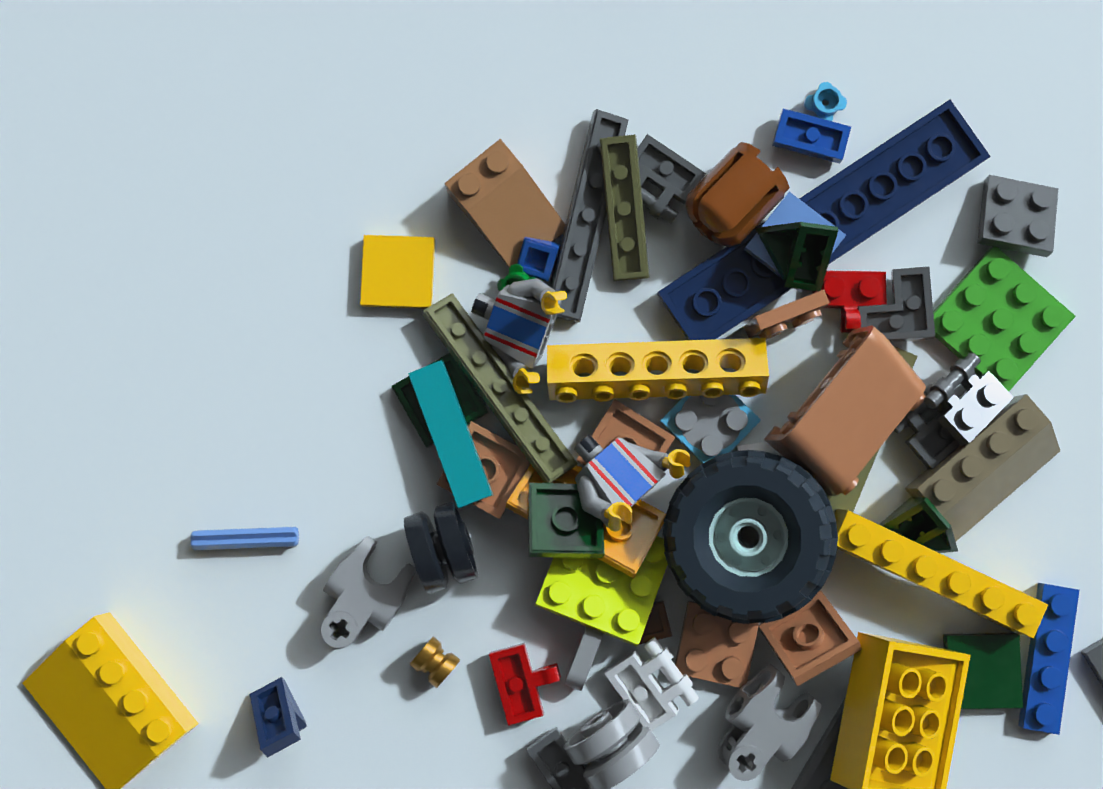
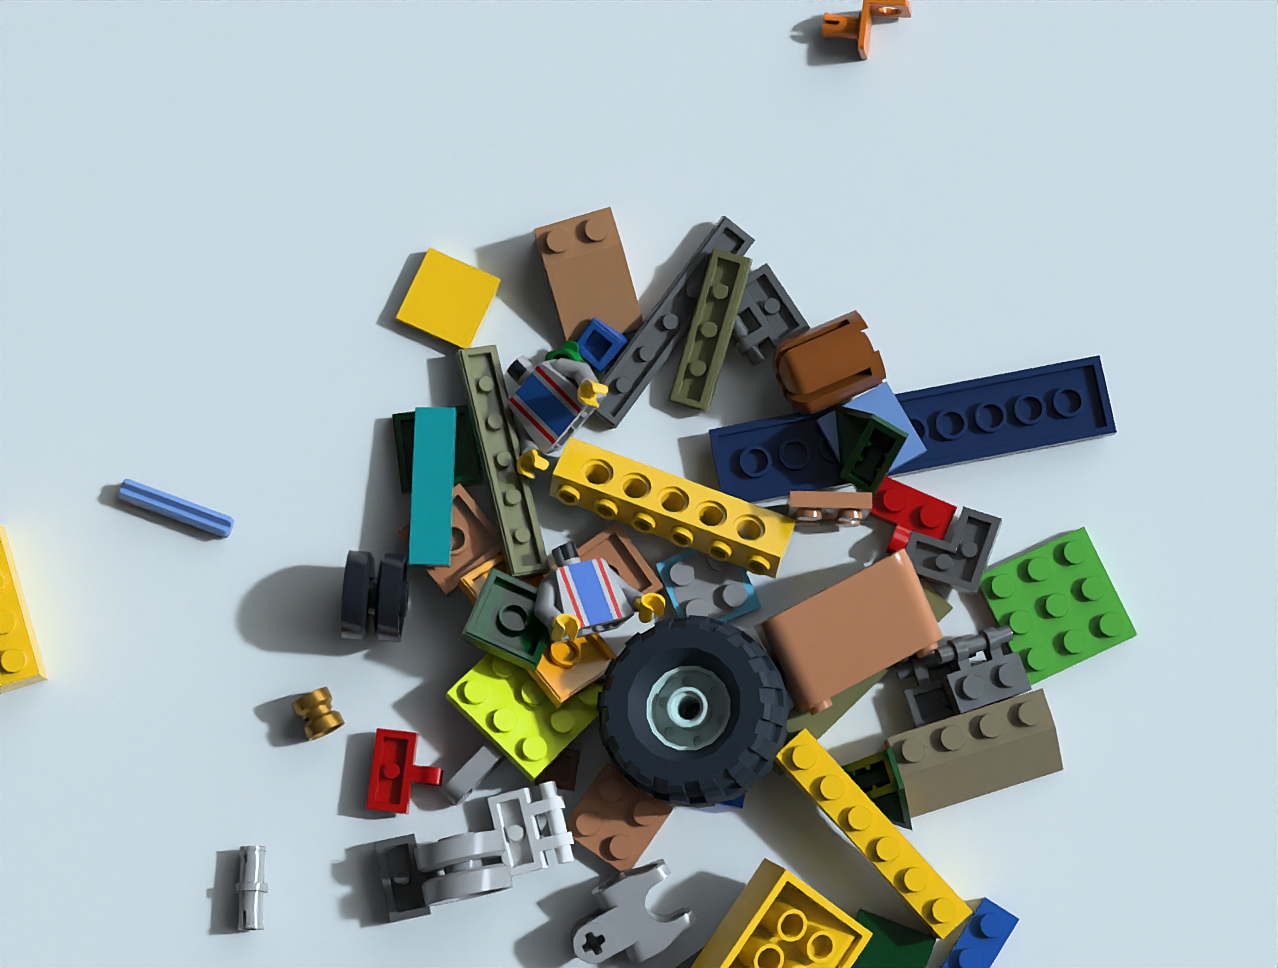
camera: 20 degrees right, 5 degrees down
(276, 717) = (133, 700): dark blue slope -> none
(360, 597) = (269, 617): light grey piece -> none
(810, 639) = (713, 846): nougat plate -> none
(811, 136) = (939, 334): blue plate -> none
(832, 95) = (973, 295): medium azure plate -> none
(1018, 216) = (1121, 506): plate -> none

